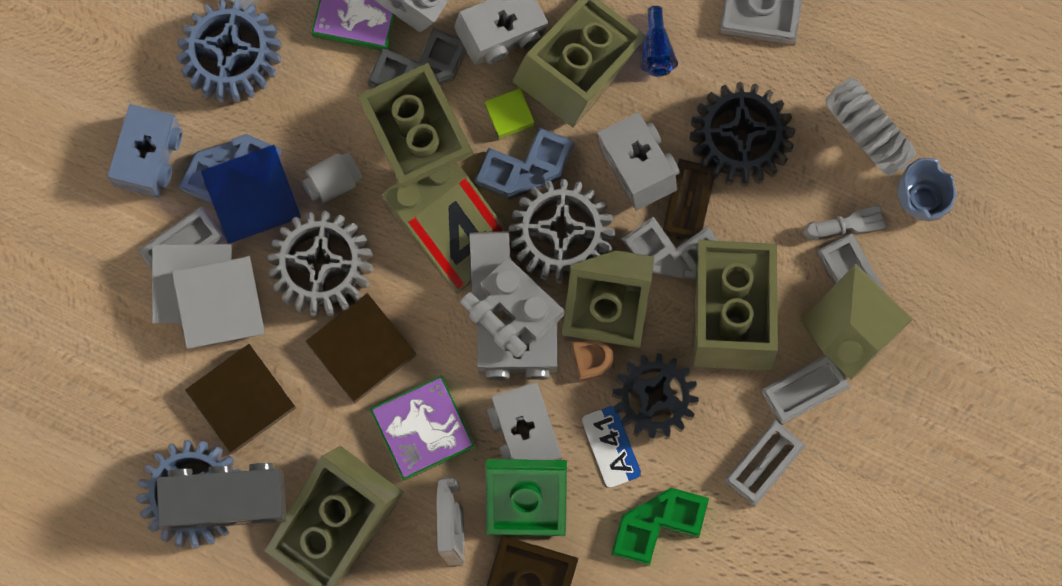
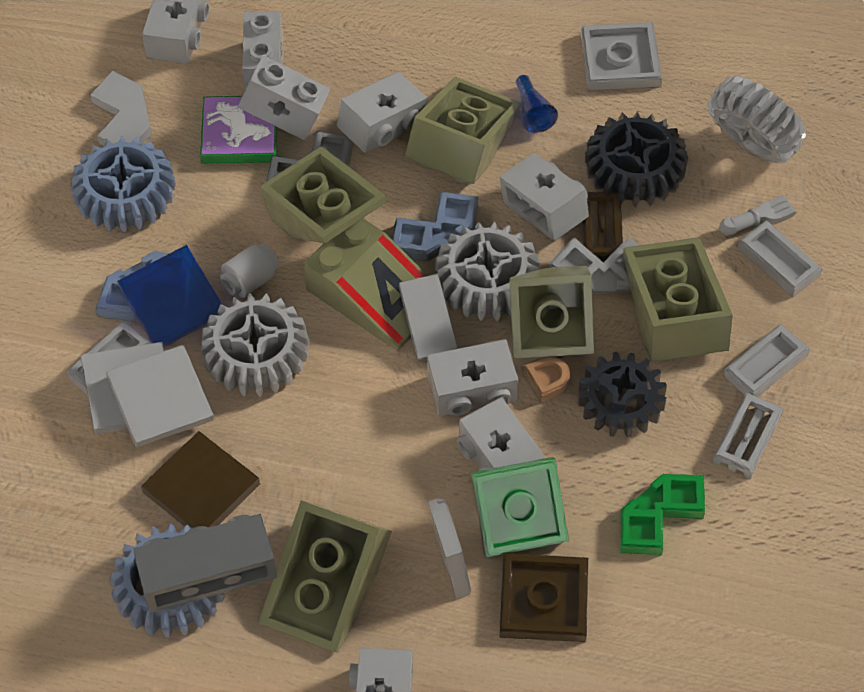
camera: 15 degrees left, 20 degrees down
(140, 131) = (56, 282): sand blue brick -> none
(361, 348) = (313, 414): dark brown tile -> none
(422, 428) = (395, 474): tile -> none
(509, 113) = (408, 187): lime tile -> none
(520, 299) = (465, 326): light grey plate -> none
(611, 447) = (590, 454): sticker -> none
(855, 322) = (796, 289): olive slope -> none
(926, 190) = (823, 170): sand blue hair -> none

